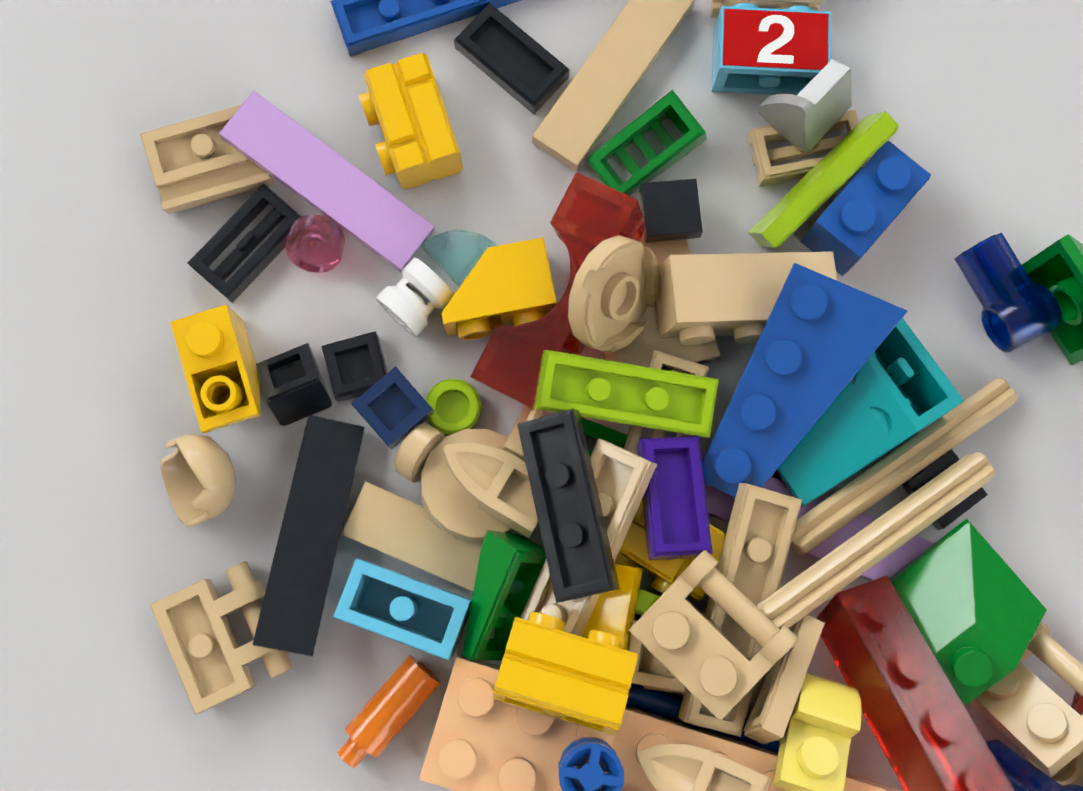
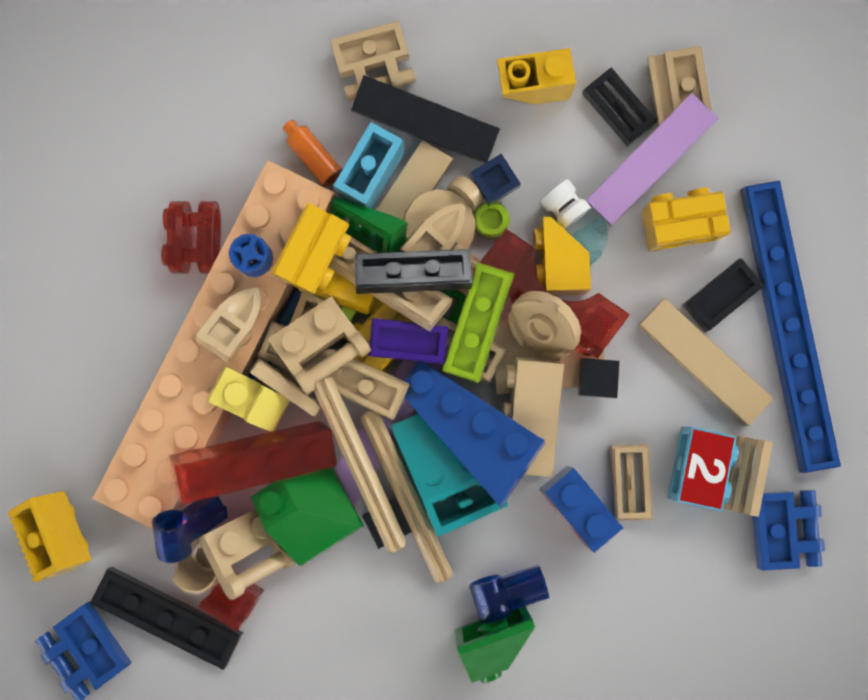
camera: 100 degrees right, 5 degrees up
(198, 478) = (470, 57): tan hair -> none
(293, 385) = (521, 123): black slope -> none
(315, 243) = (611, 147): clear pink tile -> none
(354, 365) = (528, 163): black tile -> none
(651, 119) = (658, 367): green slope -> none
(812, 112) = (654, 485): light grey tile -> none
(823, 180) = (603, 482): lime tile -> none

